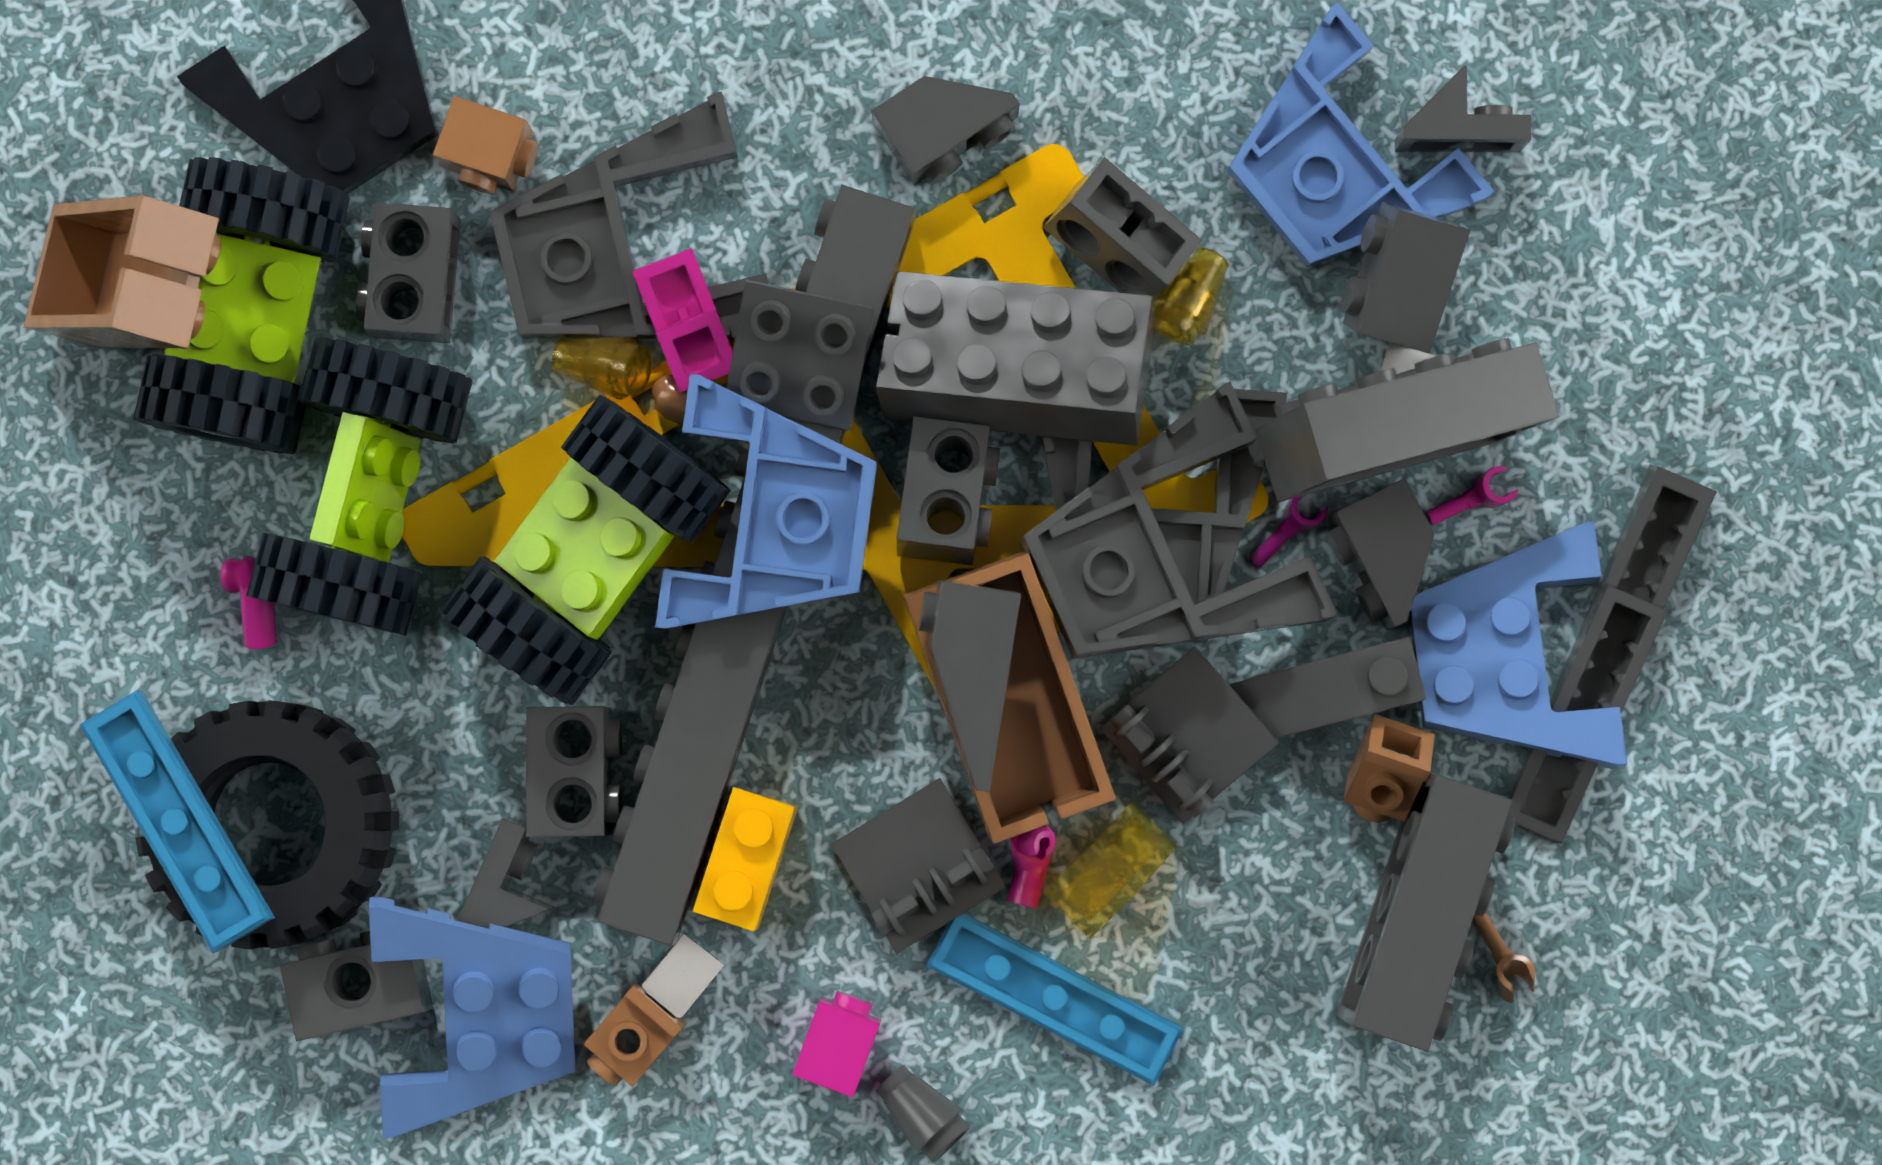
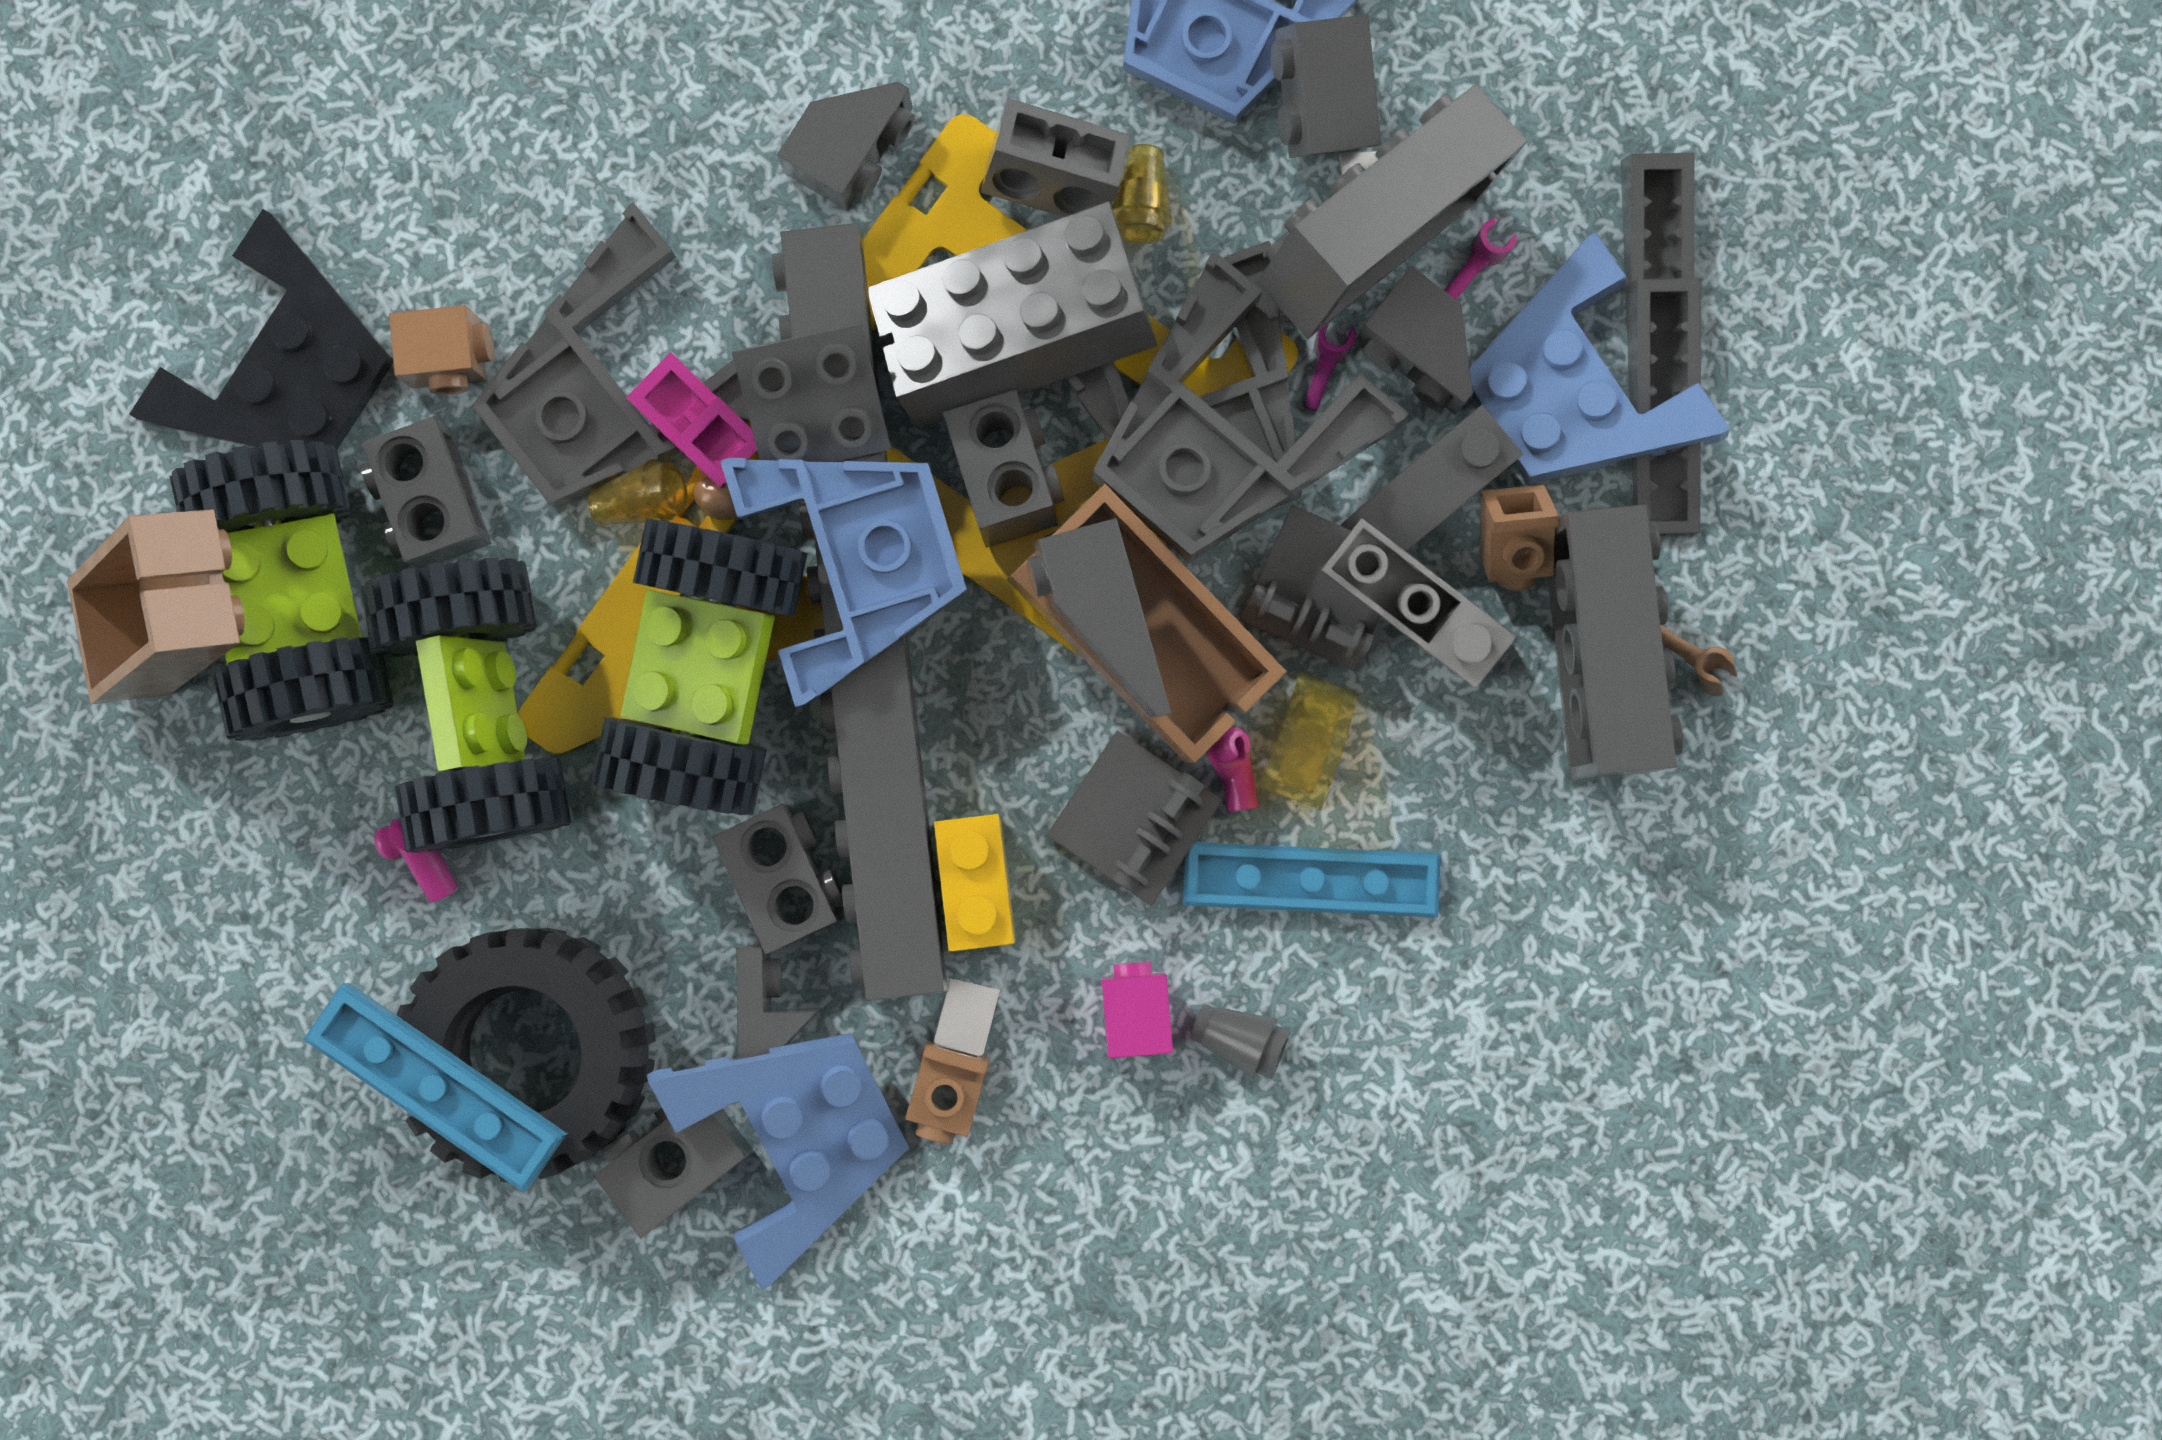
camera: 25 degrees left, 0 degrees up
(1267, 792) = (1418, 603): none -> light grey slope

